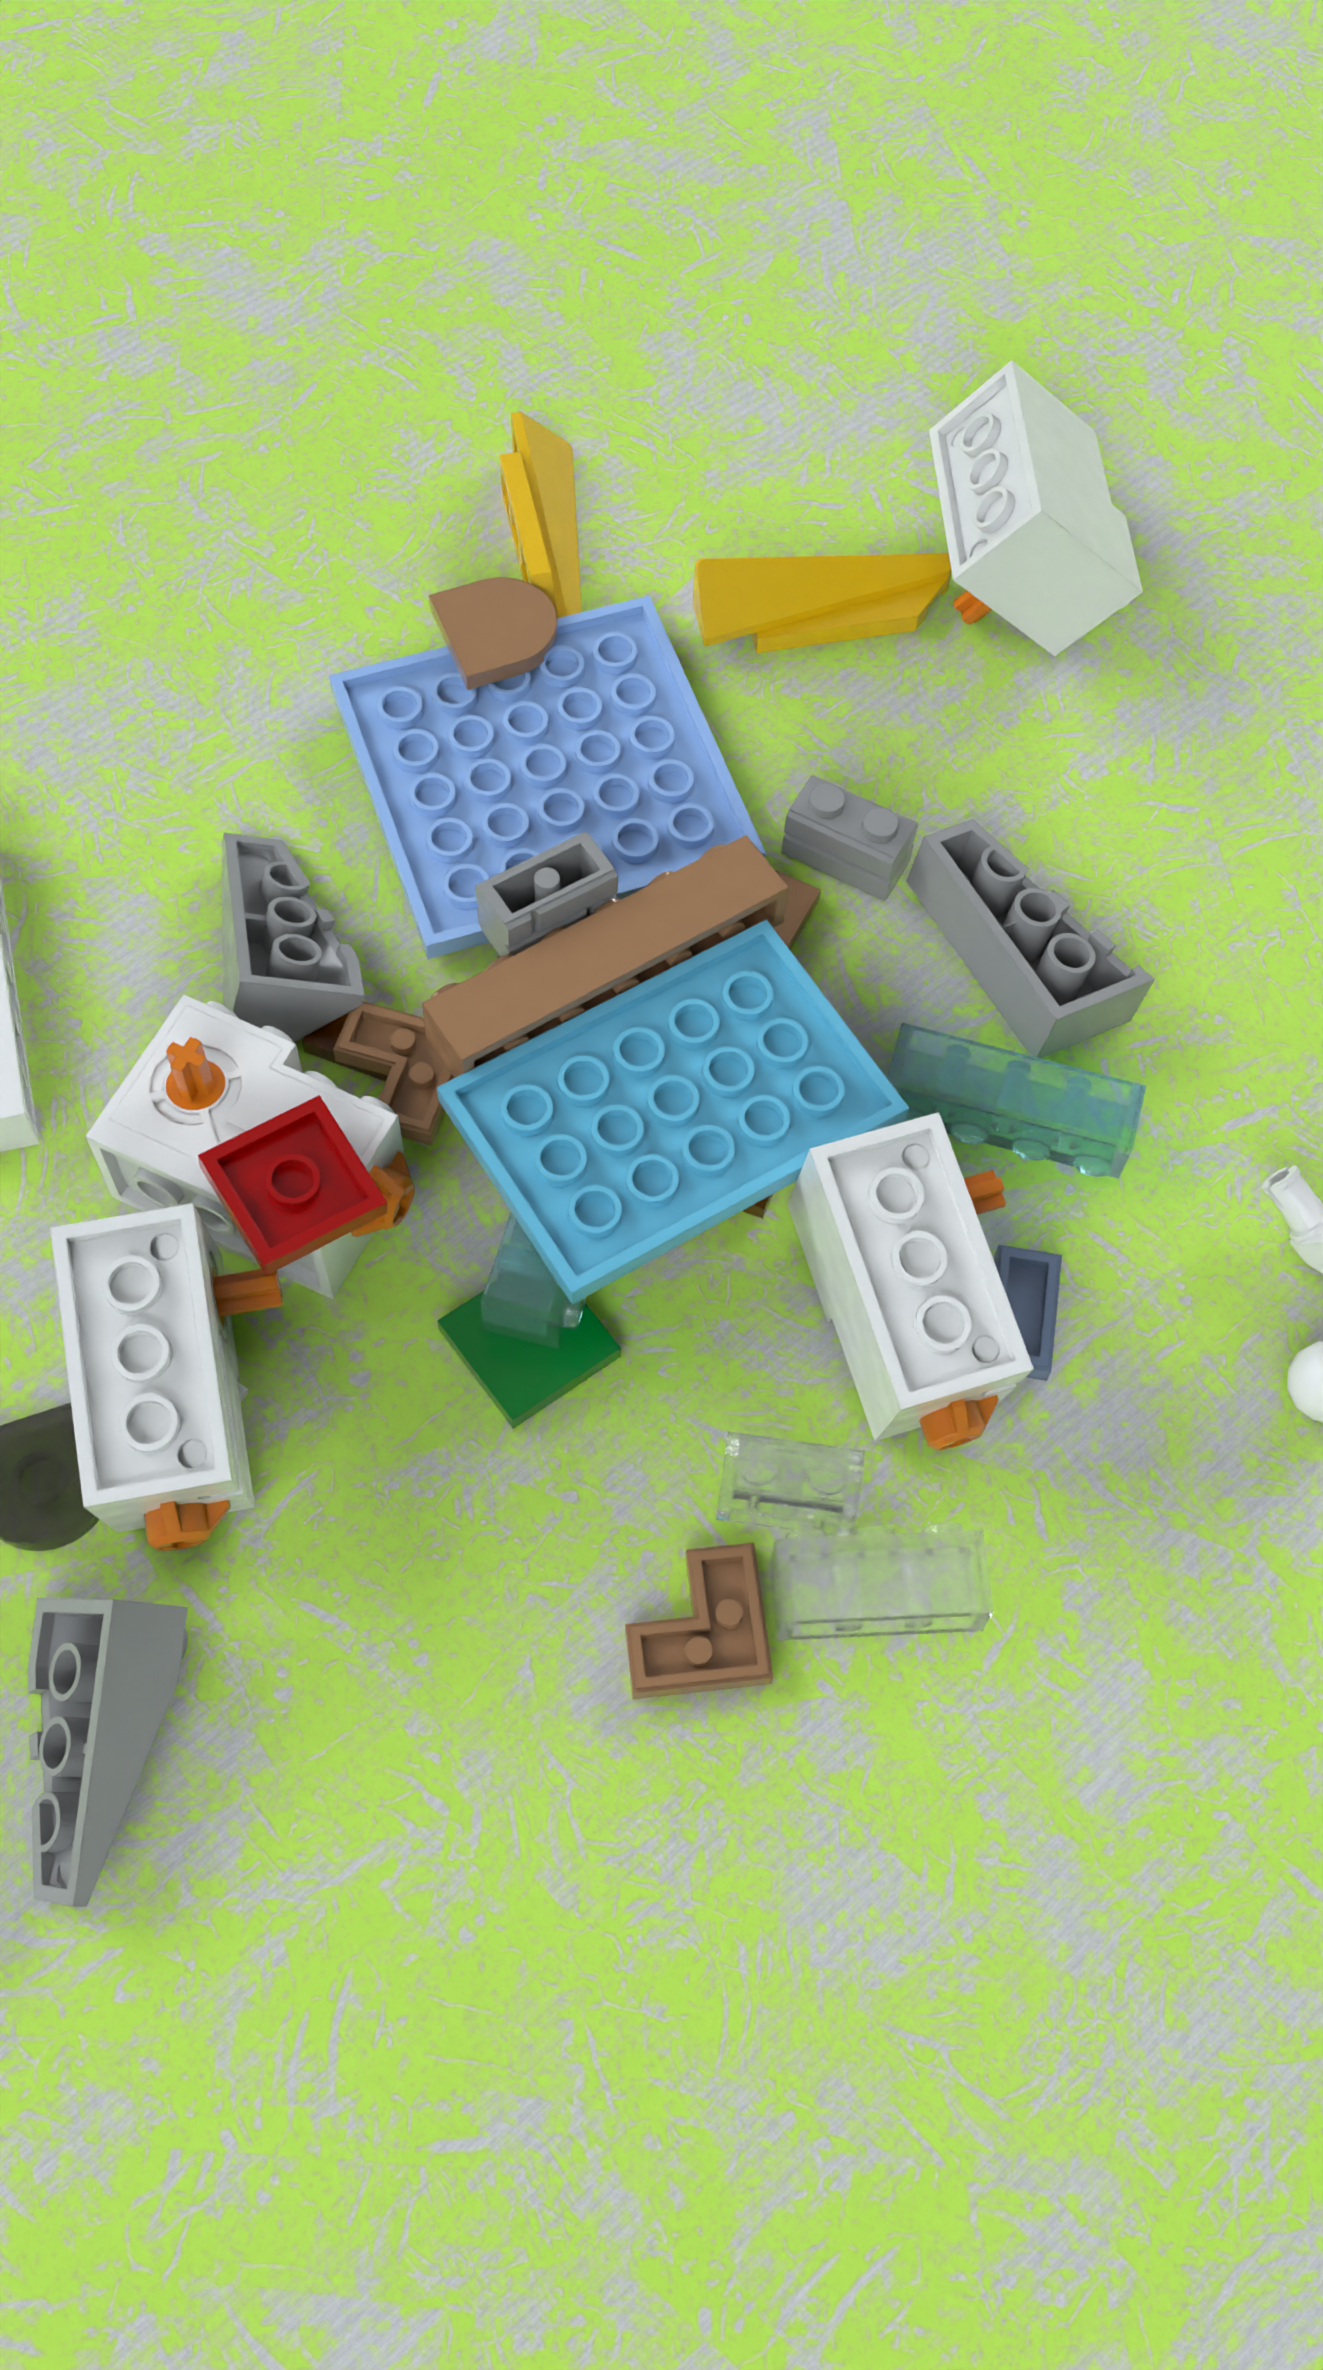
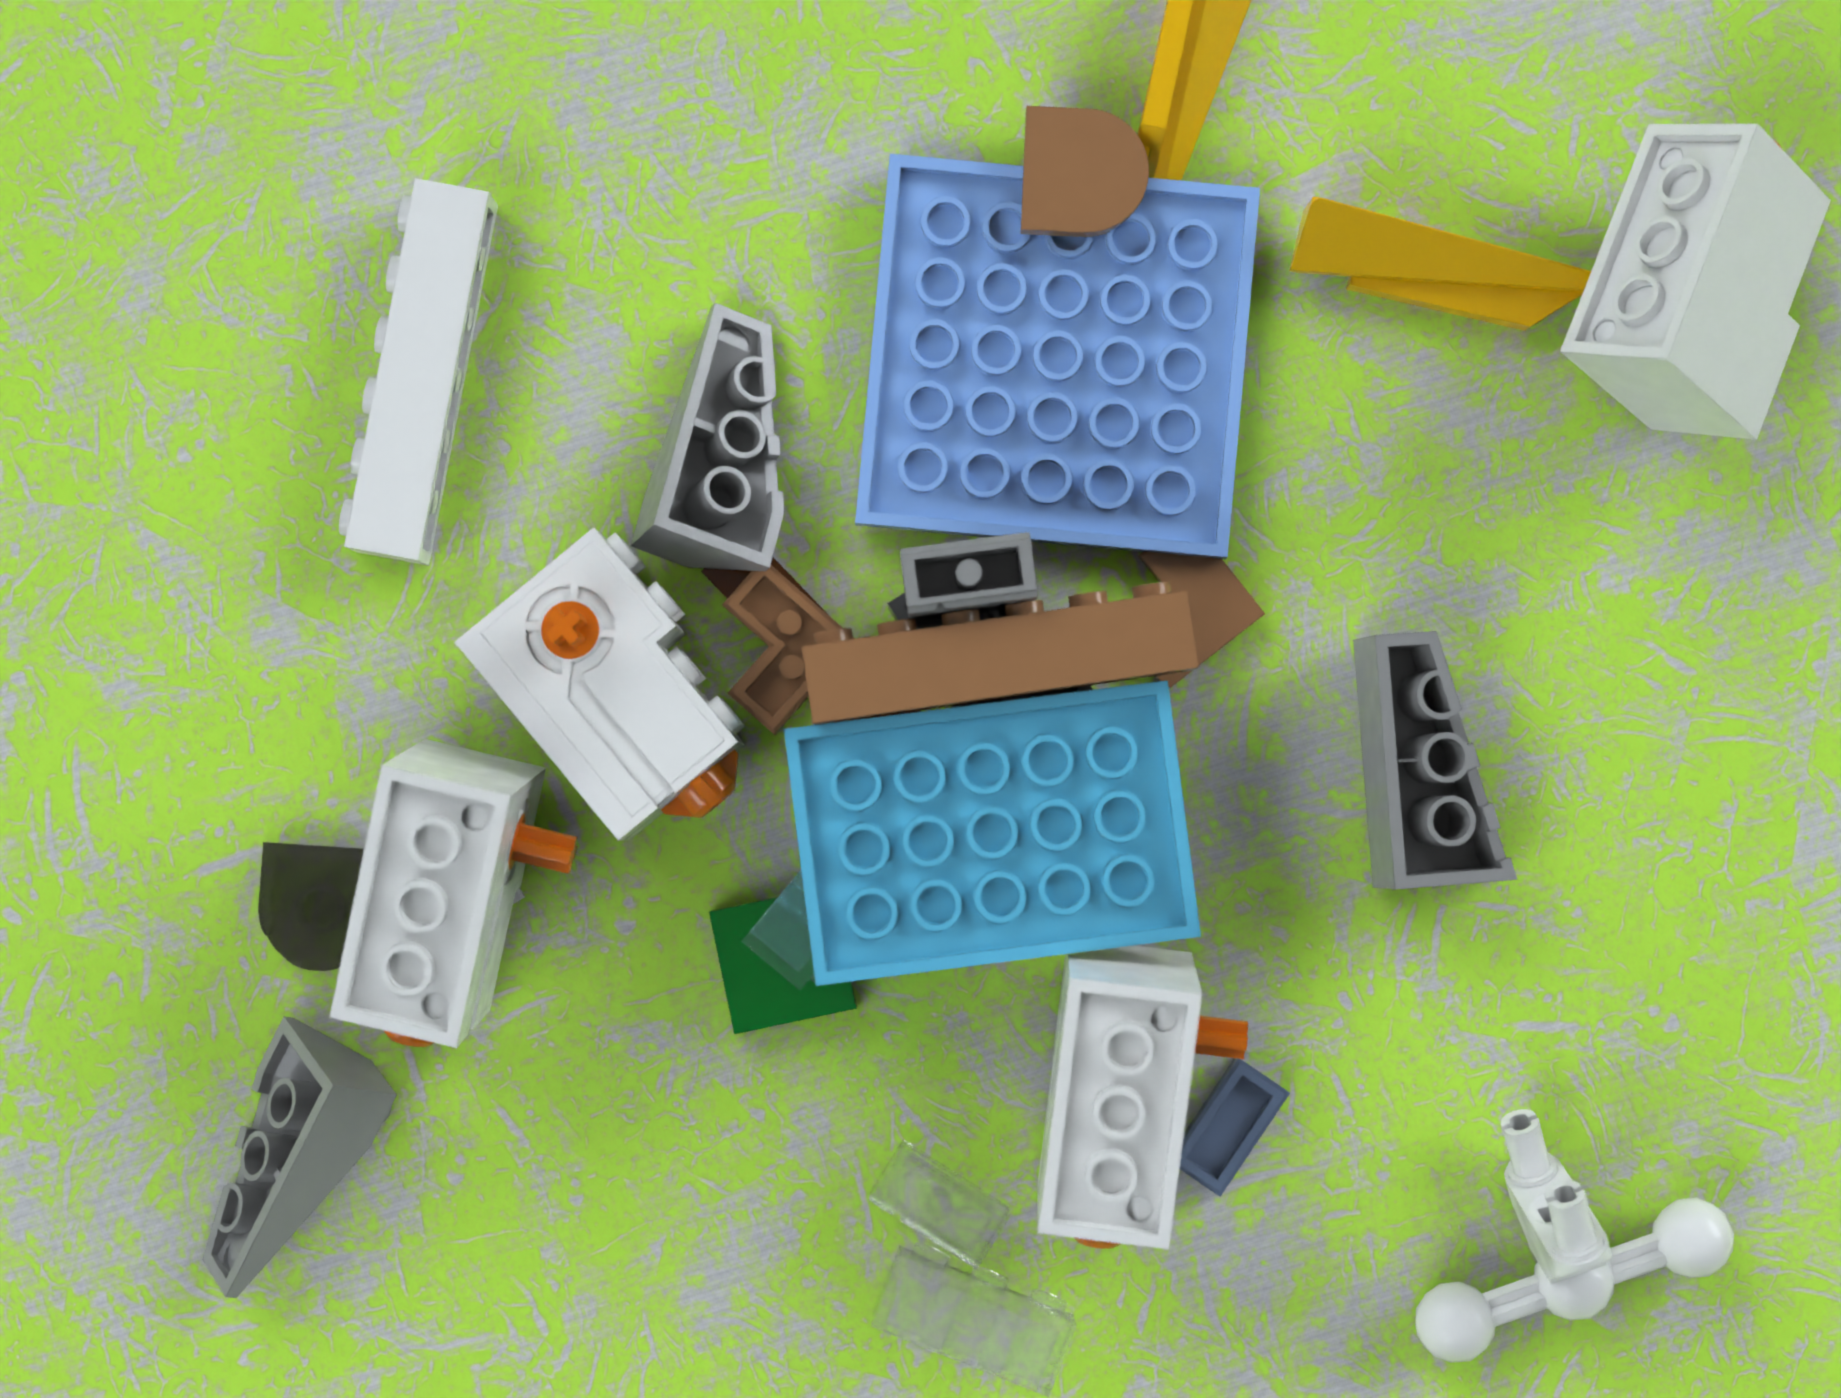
camera: 25 degrees right, 25 degrees up
(292, 1184) = (612, 788): red plate -> none
(719, 1645) = (821, 1301): medium nougat tile -> none
(848, 837) = (1317, 575): light grey brick -> none
(1018, 1100) = (1324, 926): clear light blue brick -> none

